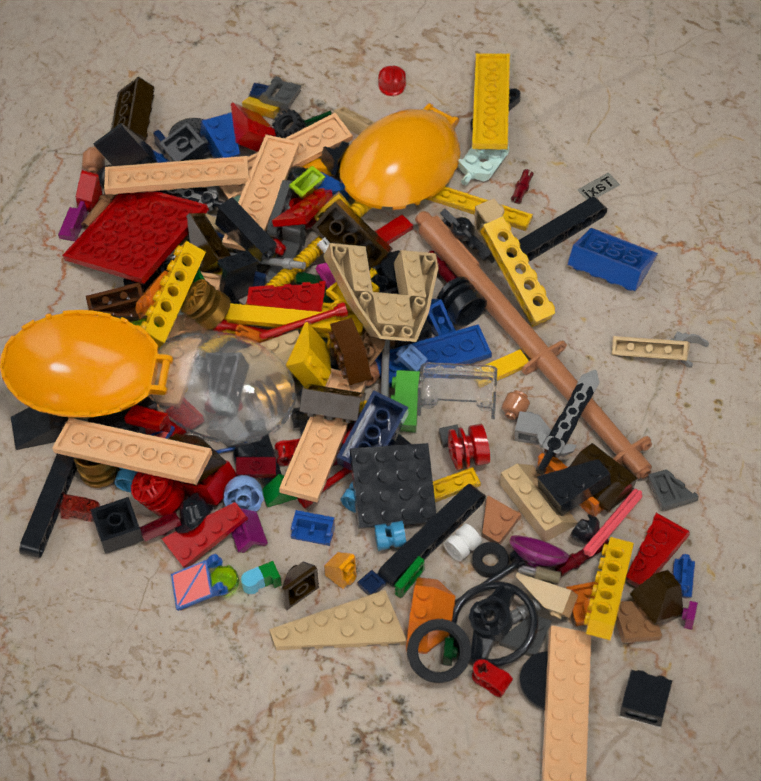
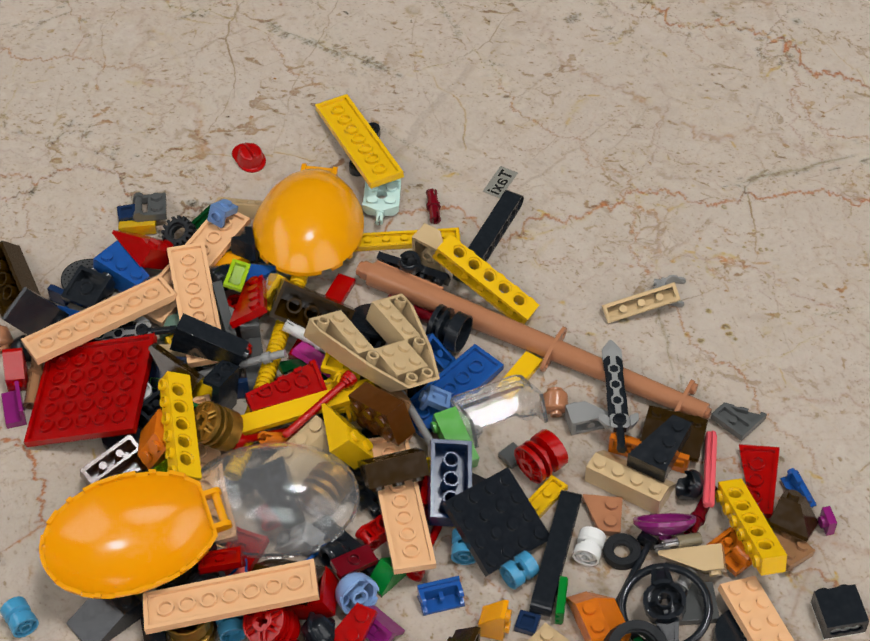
camera: 30 degrees left, 5 degrees down
(329, 119) = (220, 211): none -> medium blue bracket
(611, 259) = (556, 239): blue slope -> none

